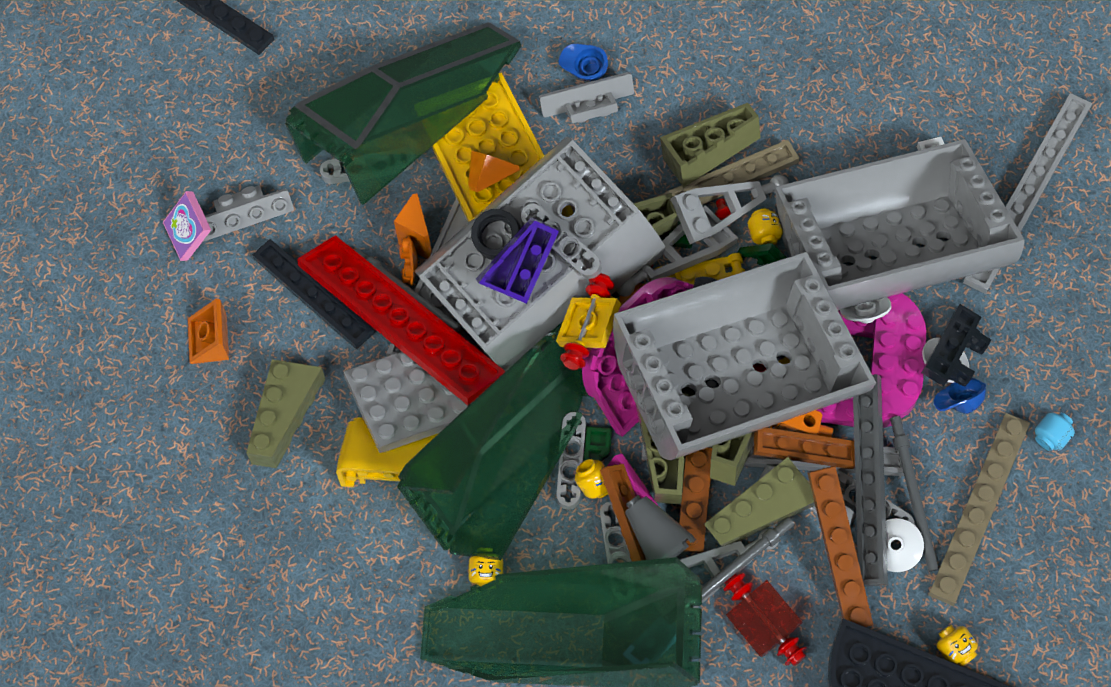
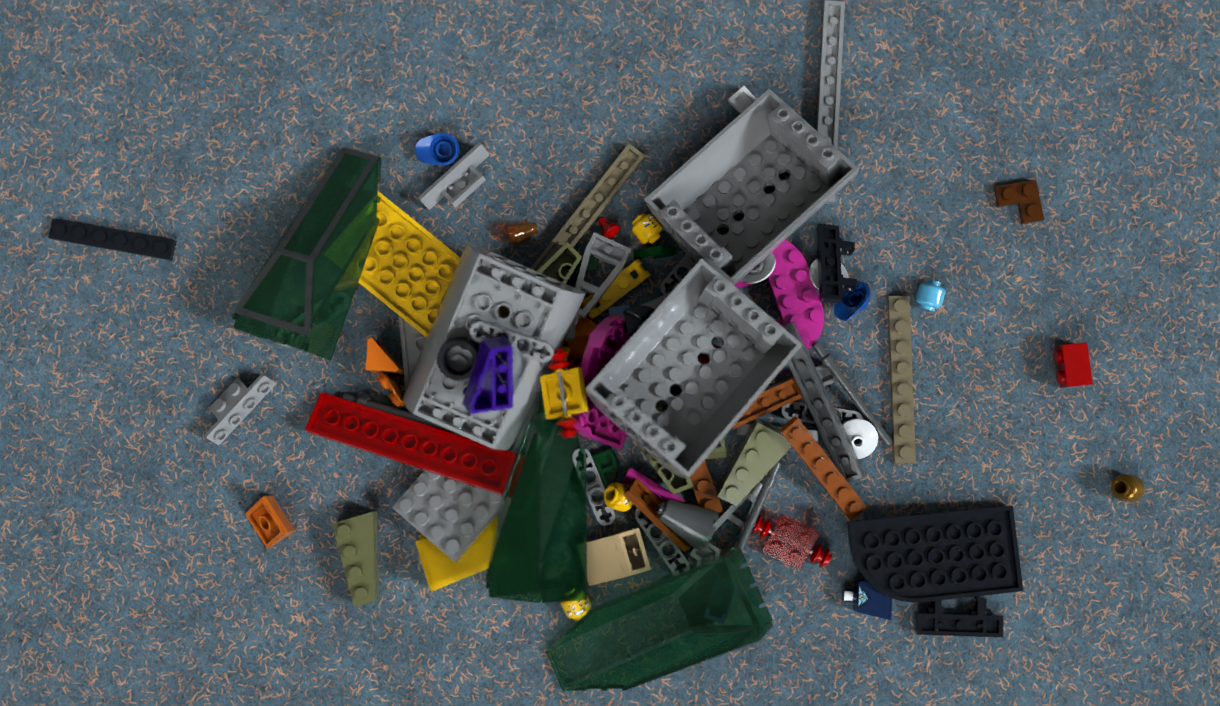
camera: 30 degrees left, 20 degrees up
(186, 226) = (201, 443): tile -> none
(313, 294) = (301, 440): black plate -> none
(488, 170) = (414, 285): orange slope -> none
(556, 539) = (616, 557): none -> tan slope
(628, 176) = (521, 232): none -> clear orange cone
(694, 217) = (589, 249): light grey plate -> none
(709, 142) = (571, 176): olive wedge -> none
(957, 645) = (931, 495): yellow head -> none

